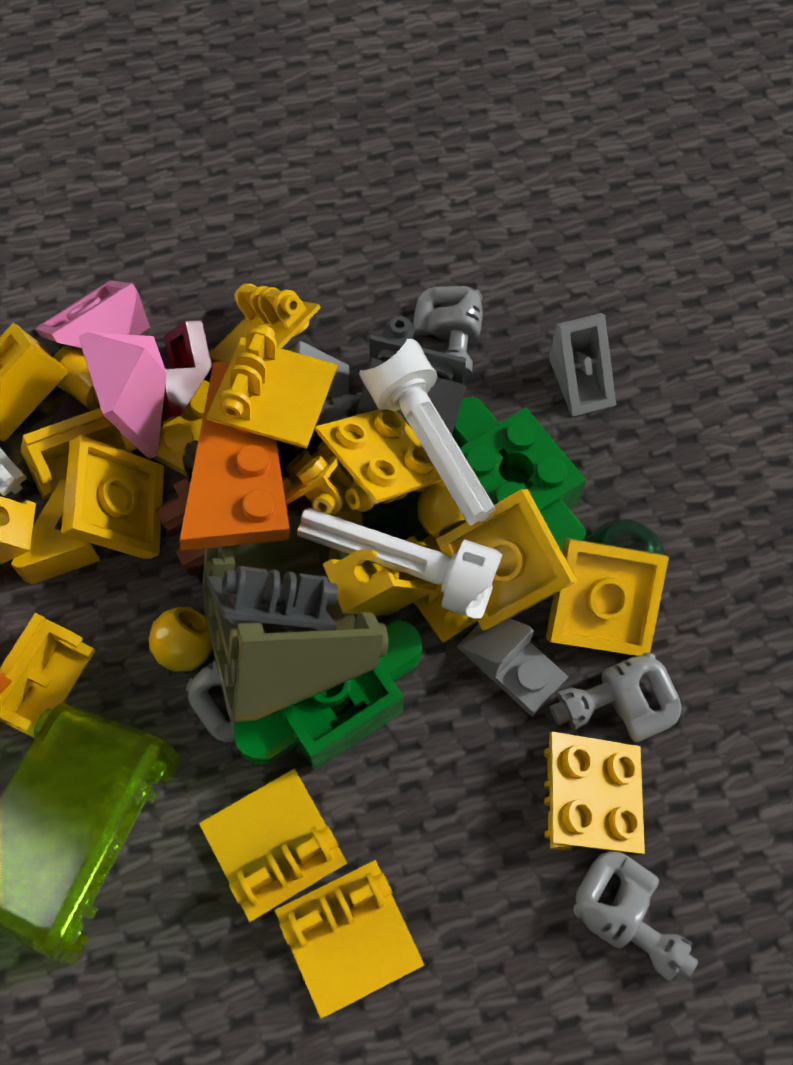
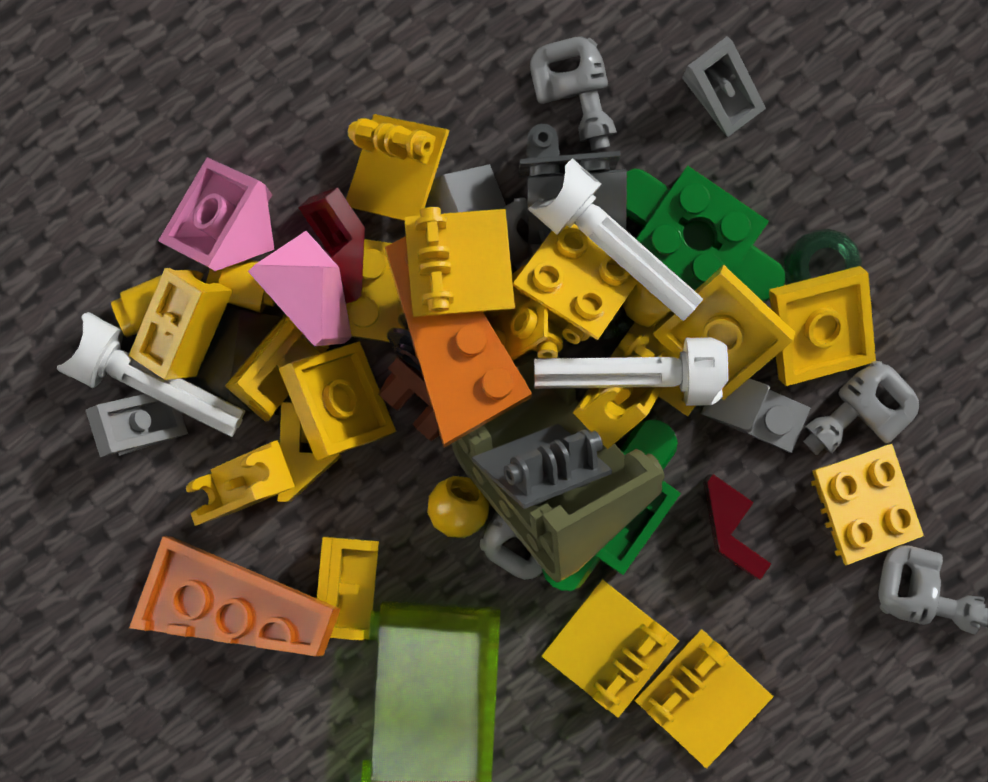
camera: 25 degrees left, 20 degrees up
(447, 744) = (725, 511): none -> dark red slope

